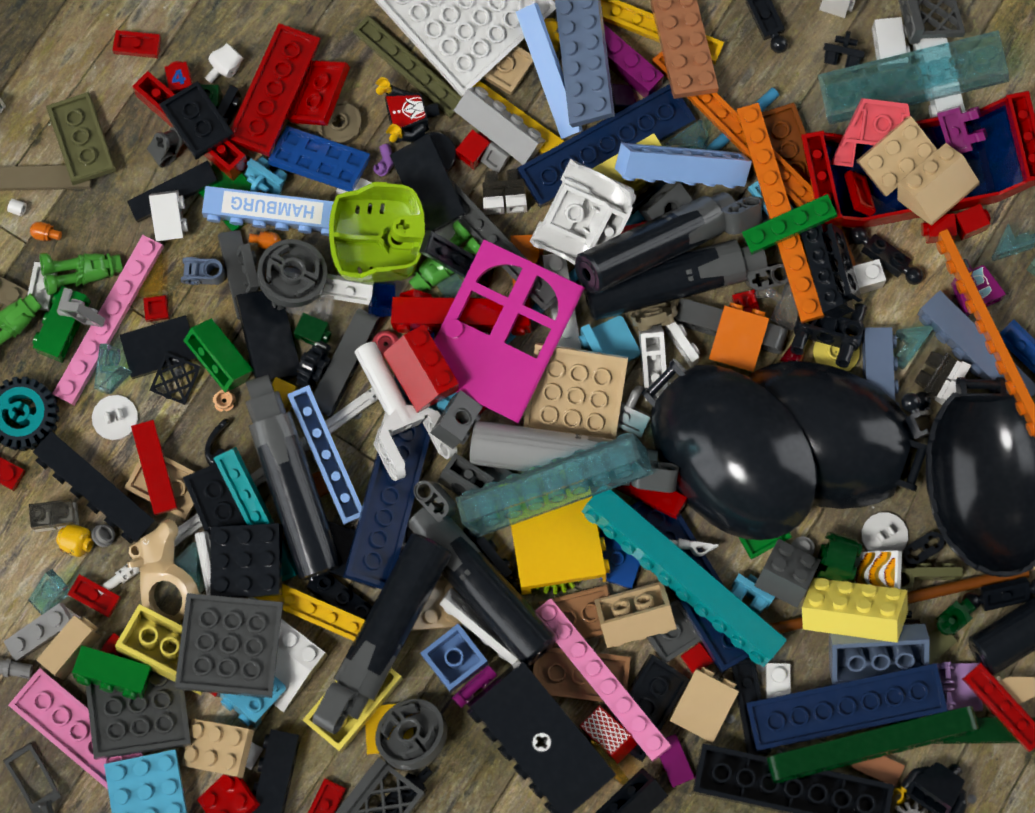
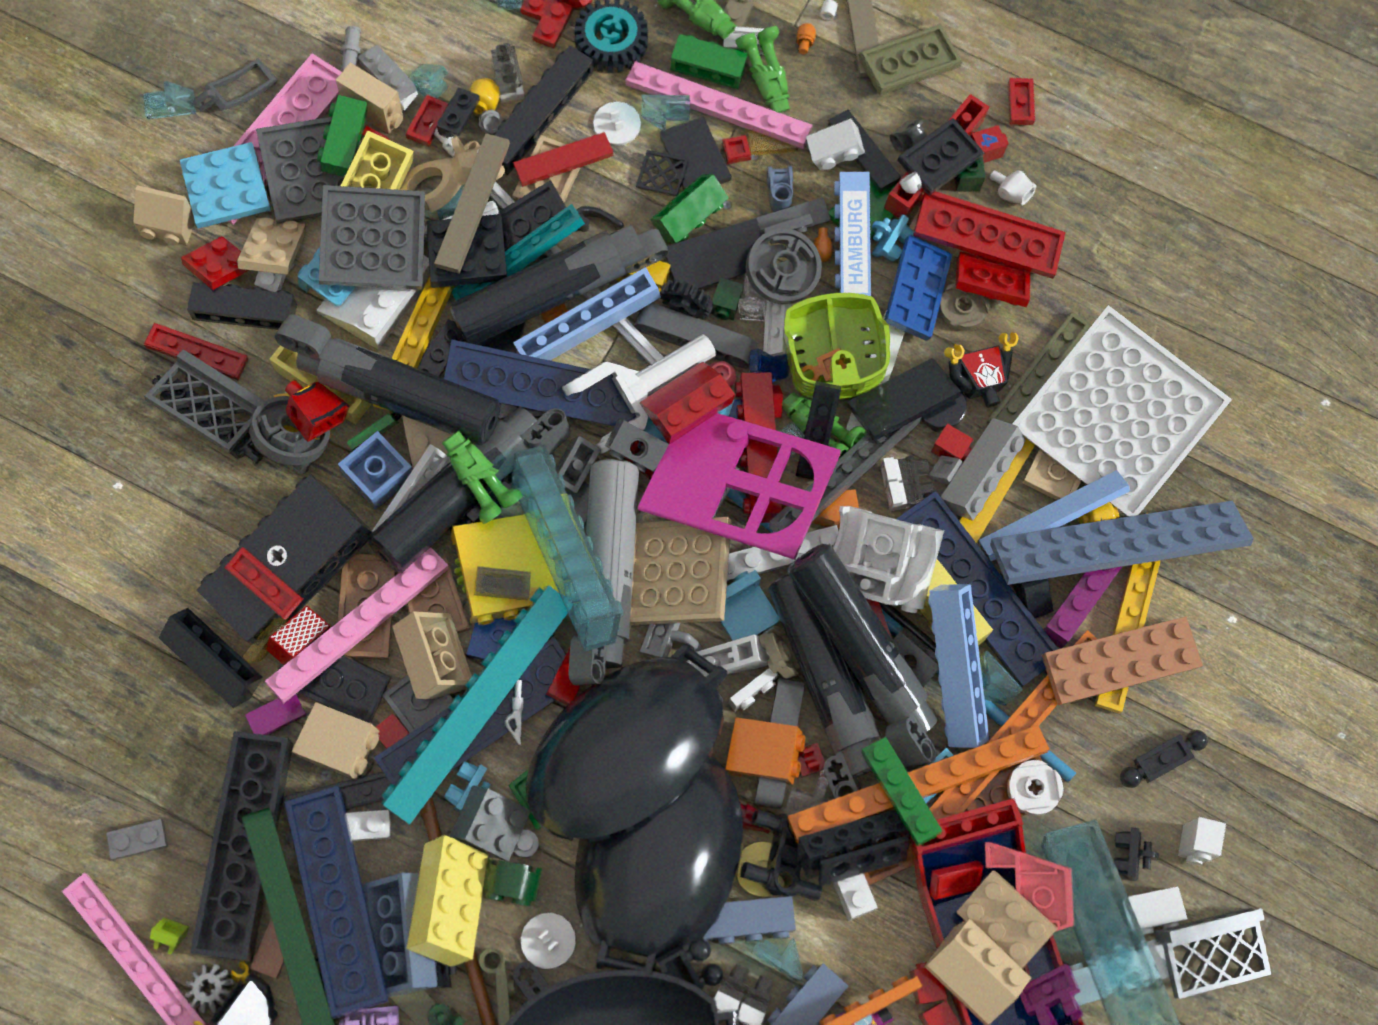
camera: 75 degrees right, 5 degrees down
(78, 311) = (719, 61): light grey plate -> none
(94, 562) = (457, 113): none -> black bracket
(204, 548) = (472, 203): none -> dark tan tile
(222, 149) = (911, 183): none -> white hinge
(228, 405) = (640, 216): light nougat plate -> none
(230, 103) = (964, 191): black plate -> none
(386, 163) = (919, 356): medium lavender arm -> none
(392, 247) = (823, 368): none -> orange plate
(395, 708) = (314, 409): none -> red torso
(416, 662) = (381, 425): none -> green tile
(467, 692) = (341, 487): magenta plate -> none
(473, 560) = (473, 465): none -> bright green piece
(566, 754) = (263, 583): none -> red tile
(579, 545) = (502, 583): none -> clear smoke plate
(786, 133) = (1043, 775): none -> white plate
(879, 568) = (500, 931): slope -> none
(889, 256) = (886, 921): black plate -> none

